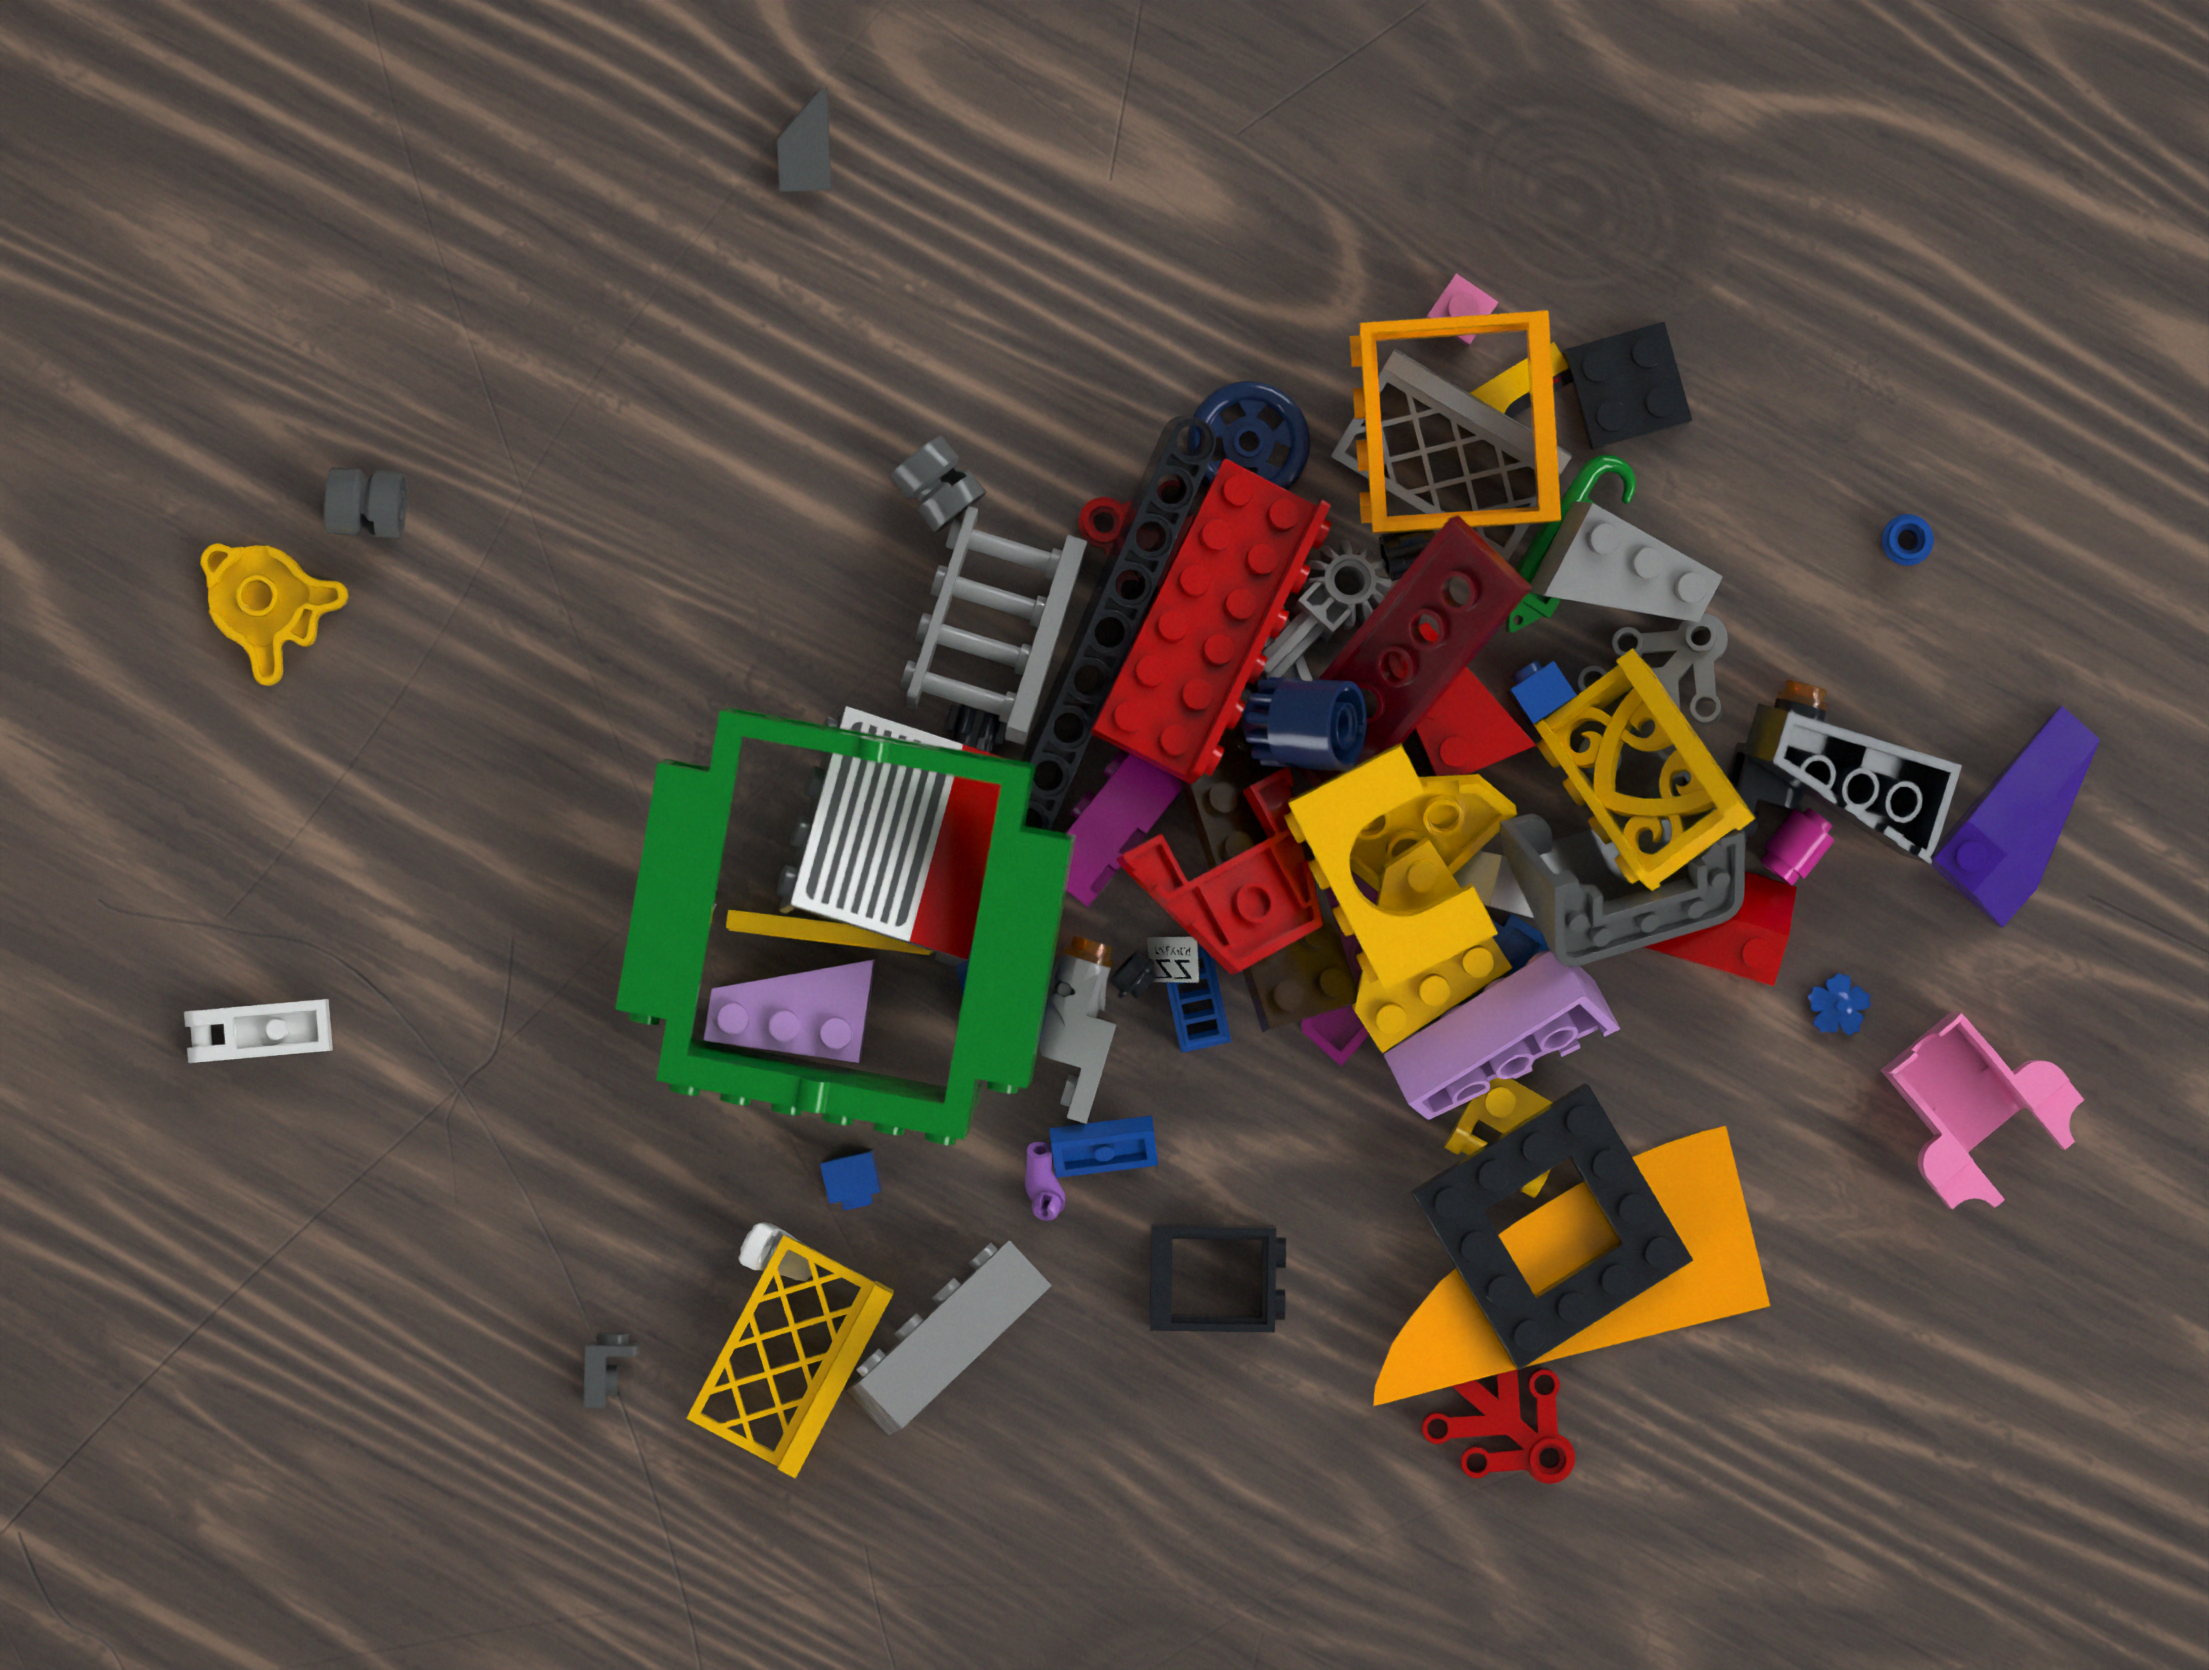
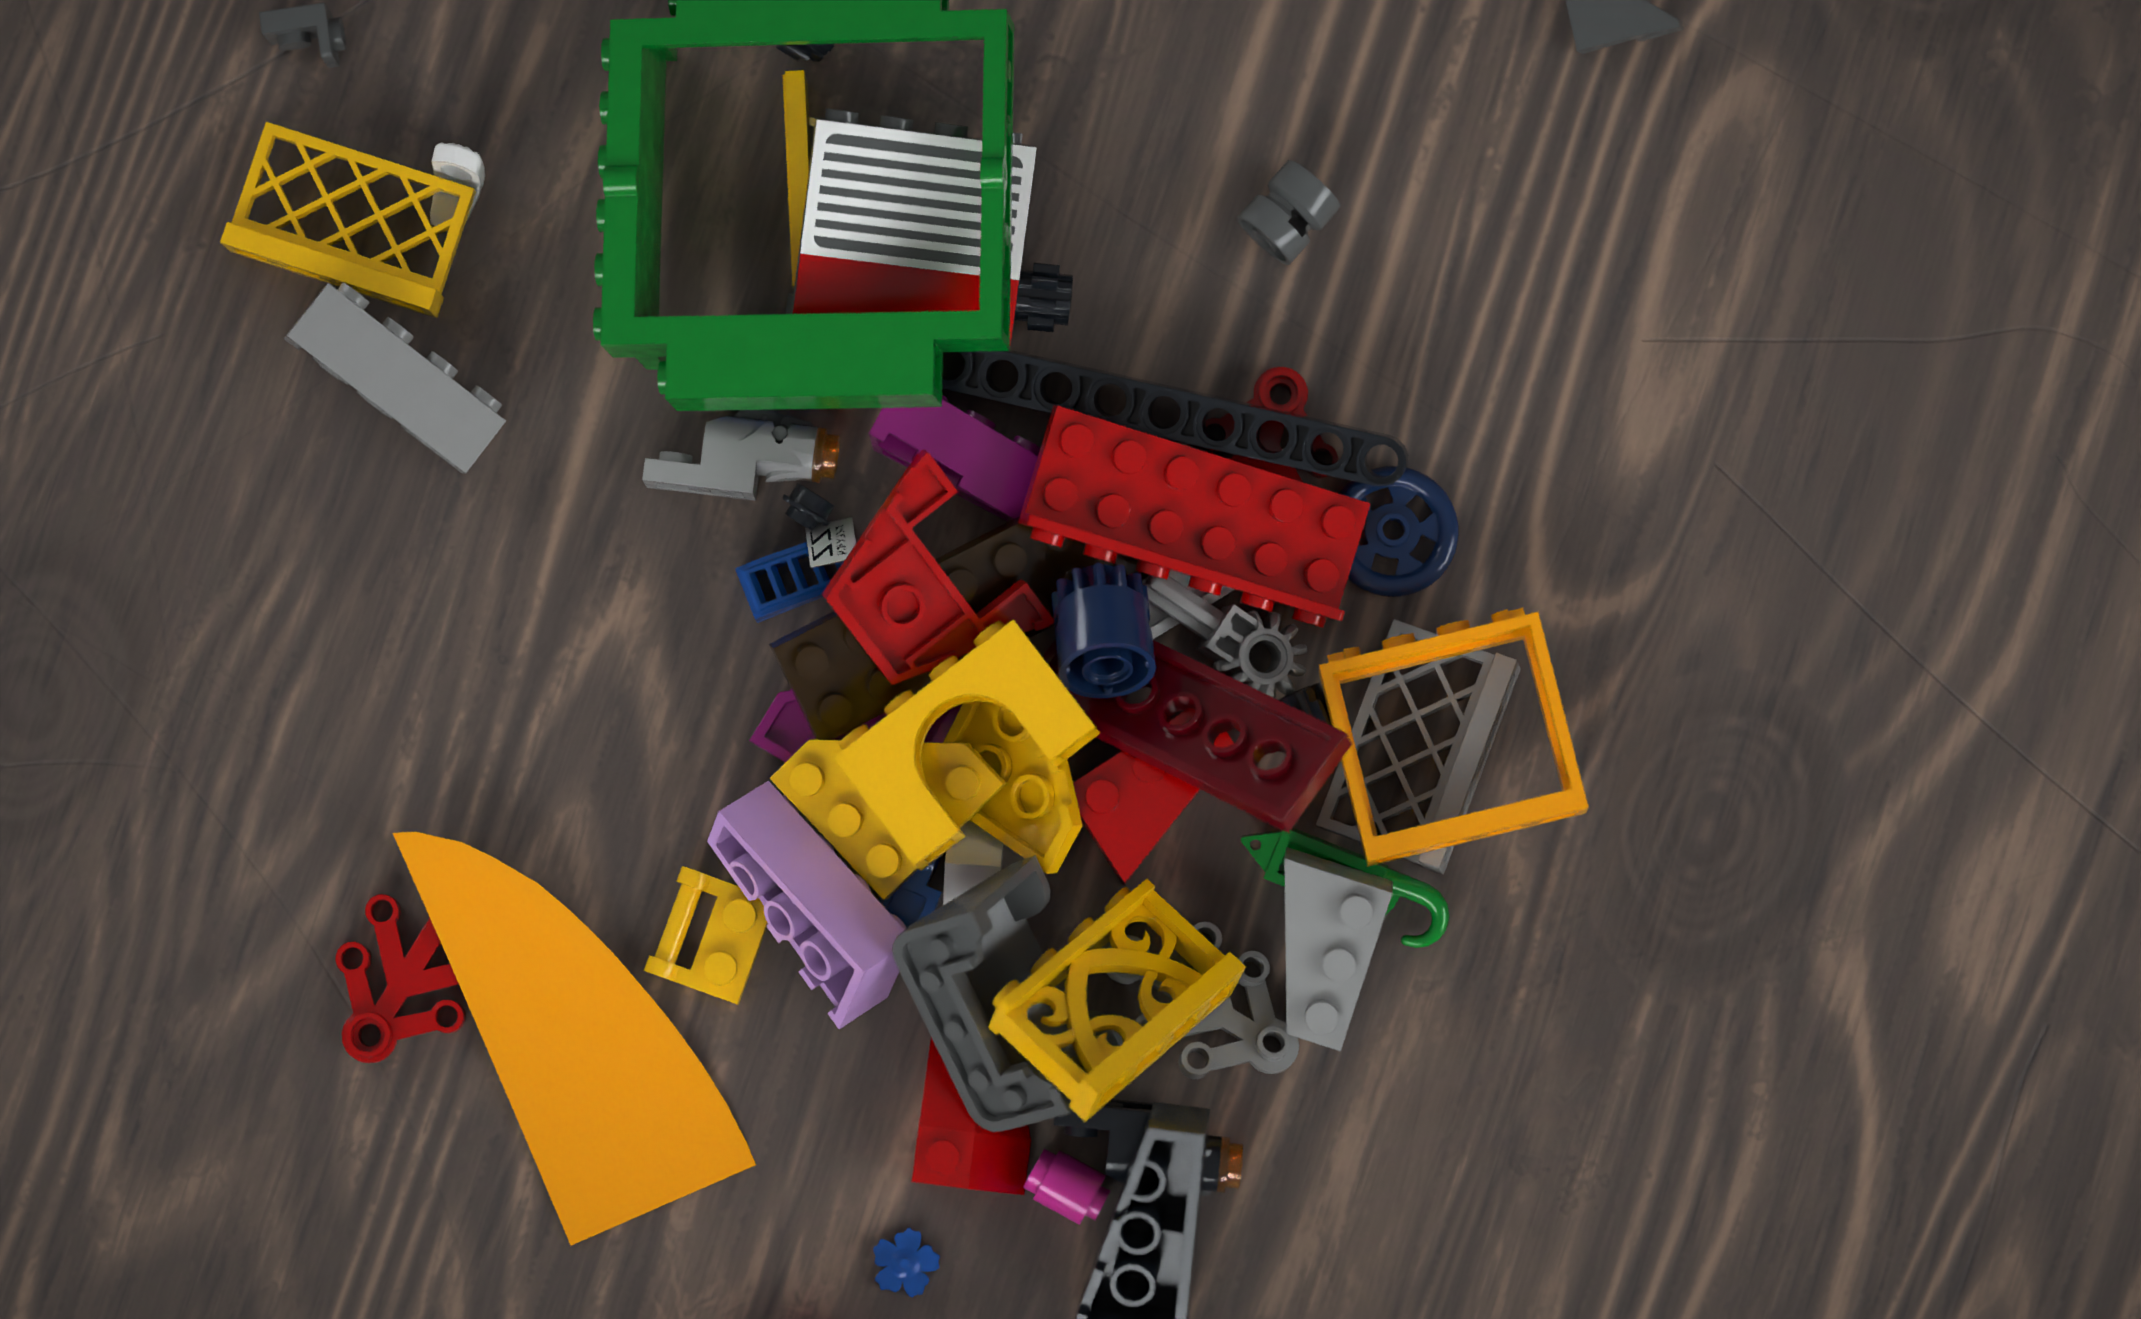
camera: 80 degrees right, 5 degrees down
(797, 1013) = (708, 167): lavender wedge -> none
(851, 1179) = (544, 250): blue plate -> none
(1029, 660) = (1119, 336): light grey fence -> none
(1042, 1183) = (573, 449): medium lavender arm -> none
(1103, 1146) = (622, 506): blue plate -> none
(1272, 1299) = (495, 590): black window -> none
(1462, 299) = (1585, 727): bright pink plate -> none
(1511, 389) = (1498, 790): yellow sticker -> none
(1539, 691) = (1184, 881): blue plate -> none
(1627, 385) = (1526, 921): black plate -> none
(1643, 1256) = (510, 995): black plate -> none
(1923, 539) = (1434, 1254): blue plate -> none

